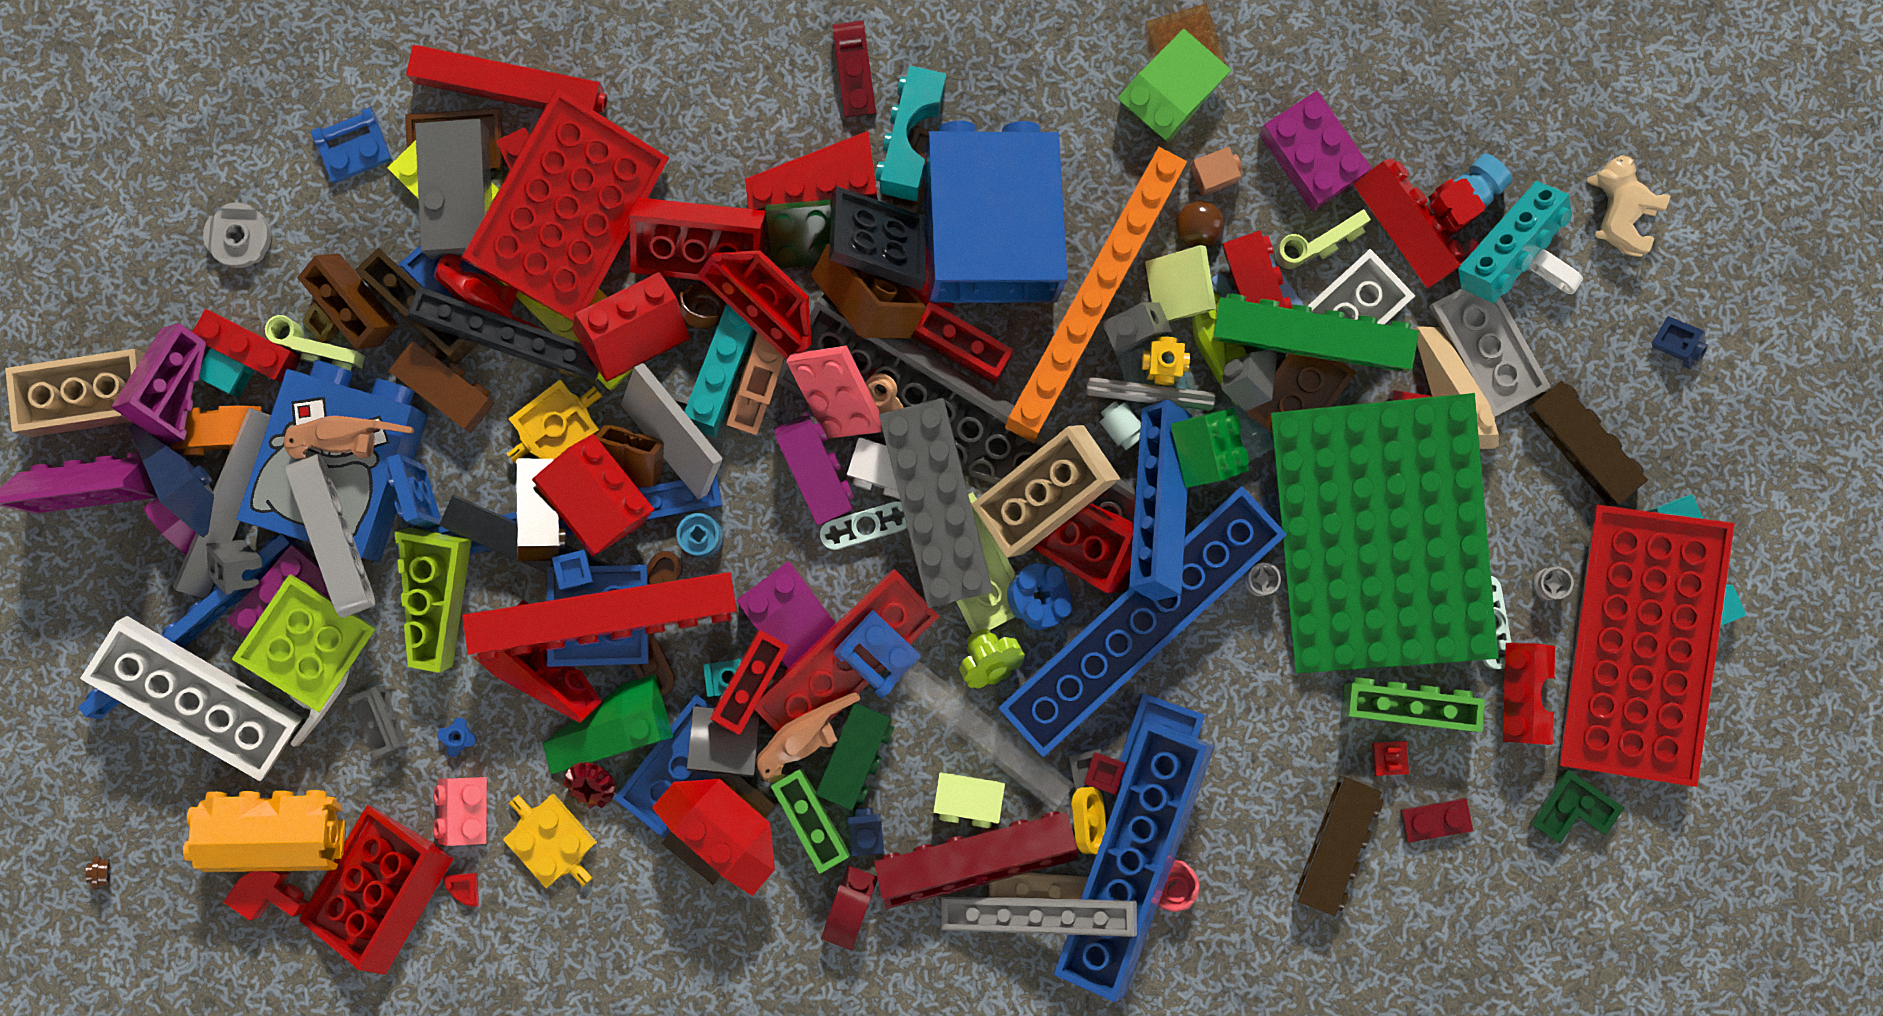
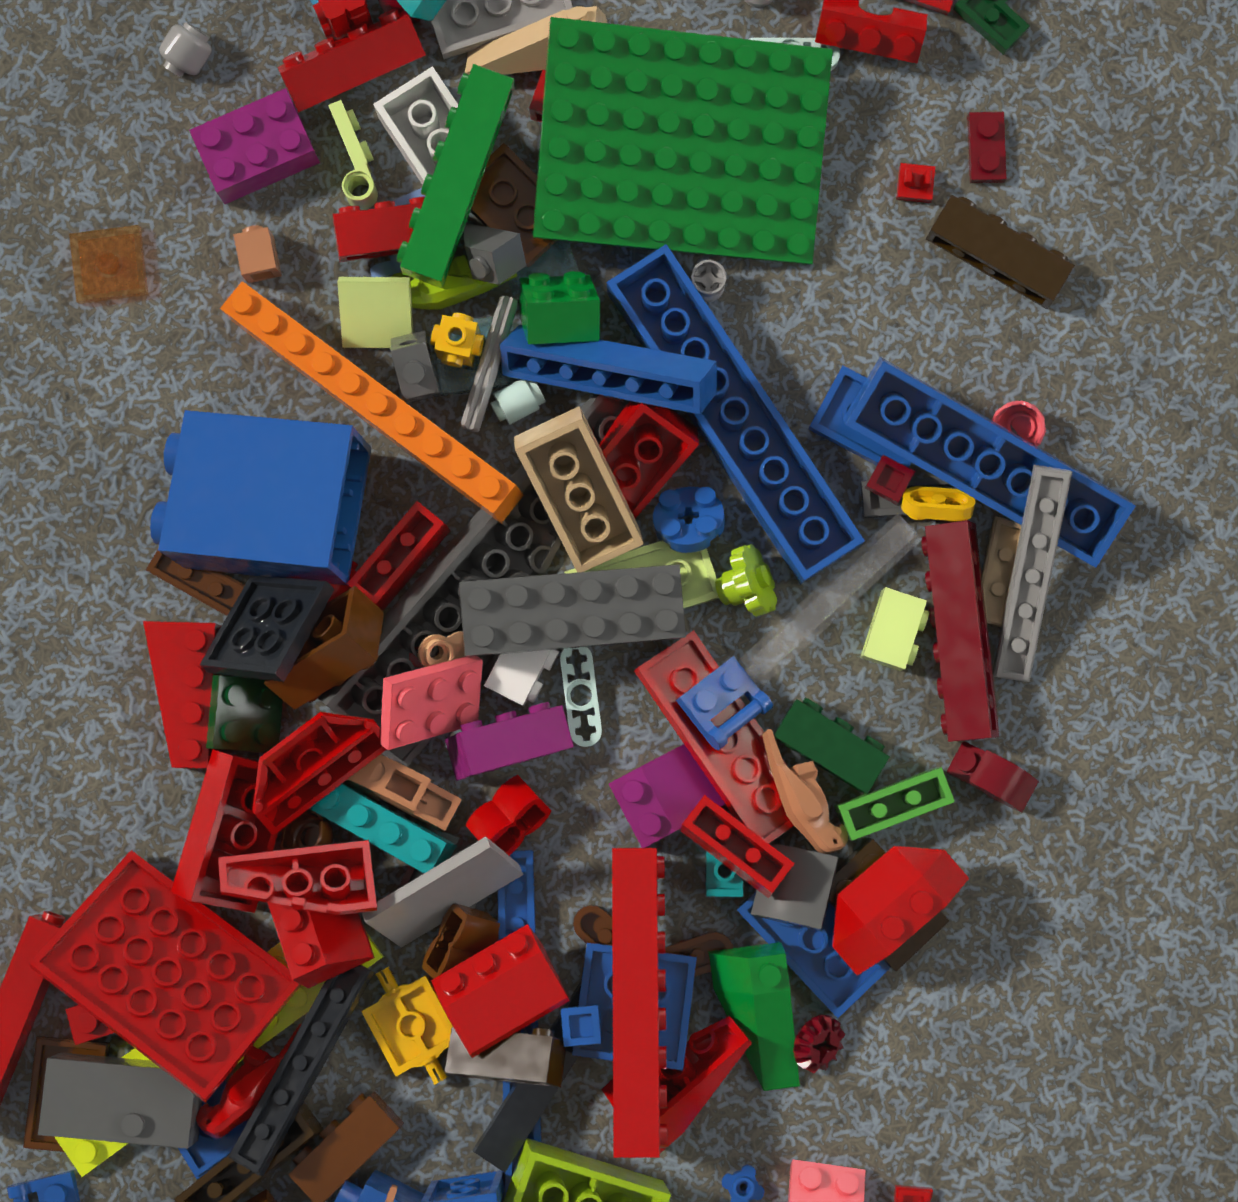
camera: 80 degrees left, 0 degrees up
(550, 841) = (872, 1097): yellow plate -> none
(664, 315) = (311, 878): none -> red wedge
(700, 535) = (563, 878): dark azure wheel -> none
(747, 479) = (509, 815): none -> red brick
(854, 68) = (68, 628): dark red plate -> none
(865, 832) = (913, 747): dark blue bracket -> none
(920, 99) = (118, 559): teal arch -> none
(1174, 85) = (154, 282): bright green slope -> none
(1200, 224) = (312, 282): reddish brown hair -> none
(1393, 73) = (185, 49): none -> light grey head
(1413, 707) = (868, 148): bright green brick -> none

